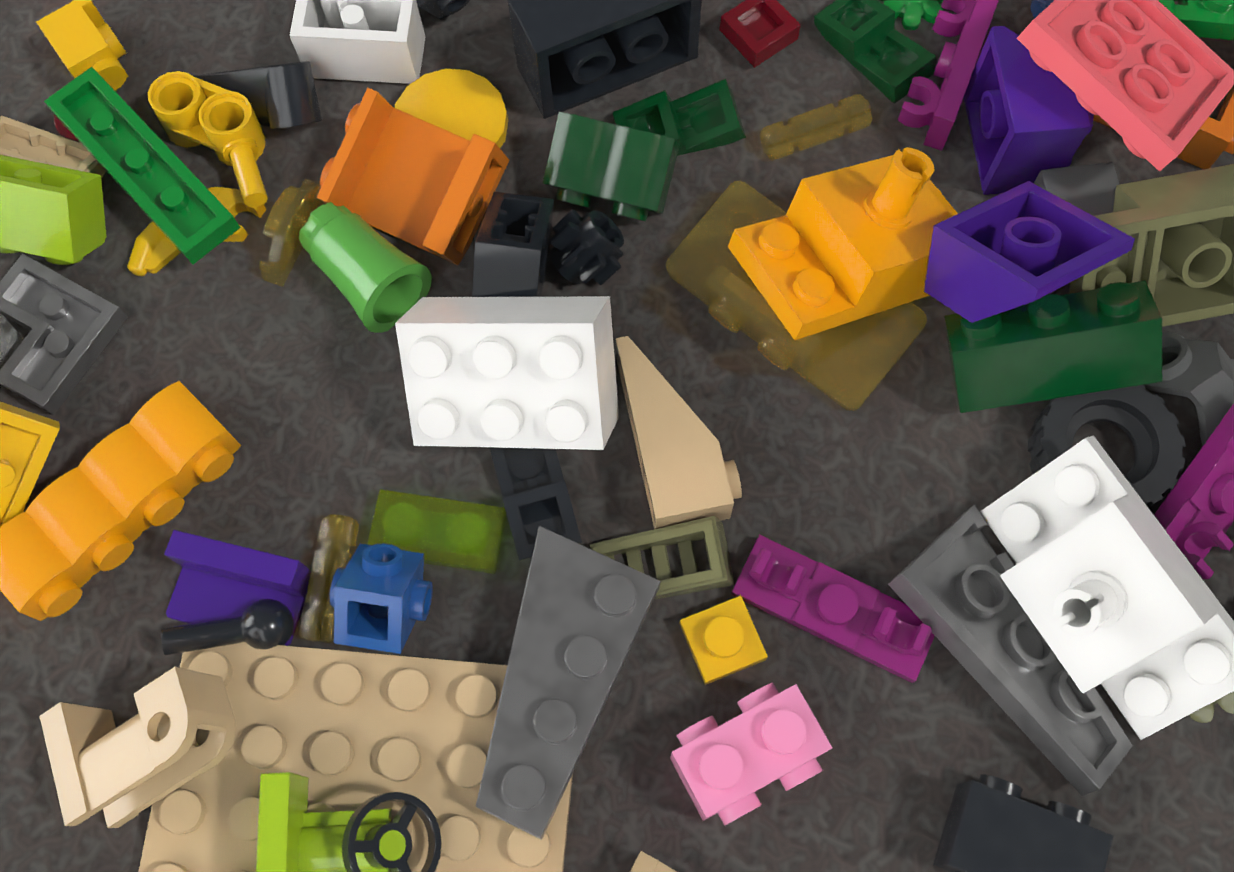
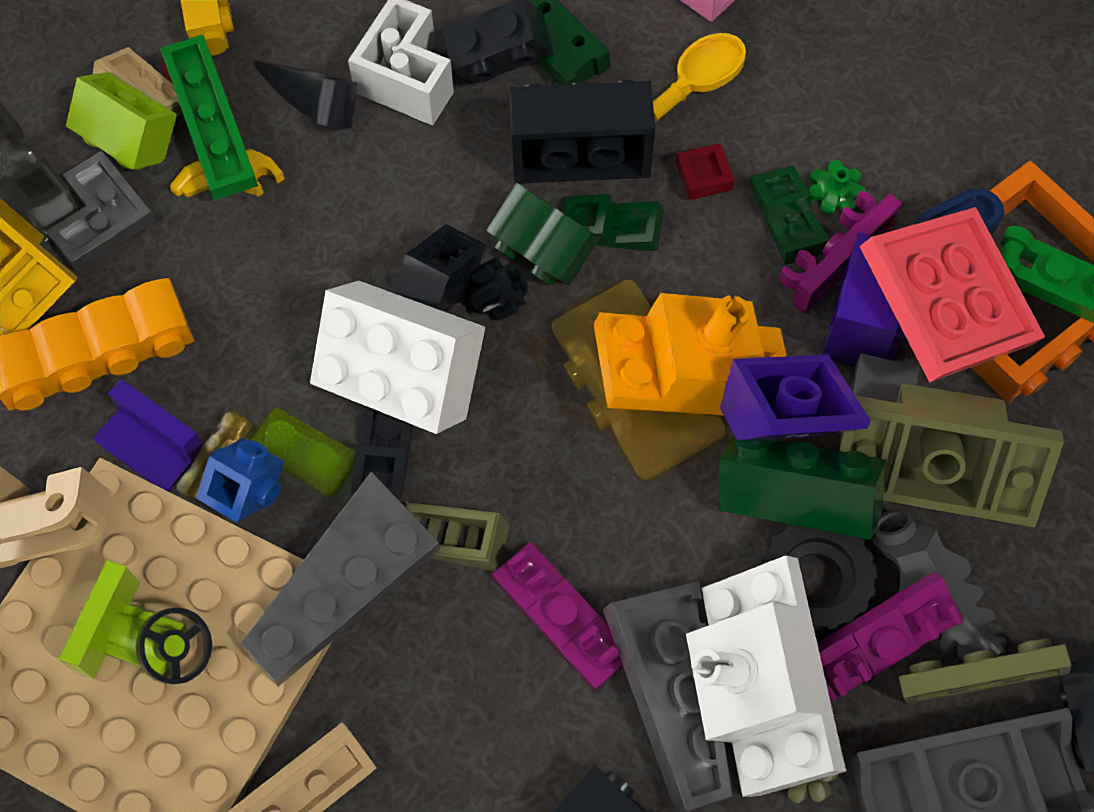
camera: 20 degrees right, 5 degrees down
(218, 118) = (275, 101): yellow beam -> none
(260, 626) = (153, 470): black bar -> none
(284, 225) = (294, 197): clear yellow tile -> none
(364, 266) = (332, 243): bright green plant -> none
(413, 177) = (393, 191): orange panel -> none
(457, 103) = (443, 162): yellow tile -> none
(674, 448) = (493, 459): tan slope -> none
(723, 640) = (470, 606): yellow plate -> none
(765, 743) = (447, 687): bright pink brick -> none
(816, 127) = (714, 261): clear yellow axle -> none

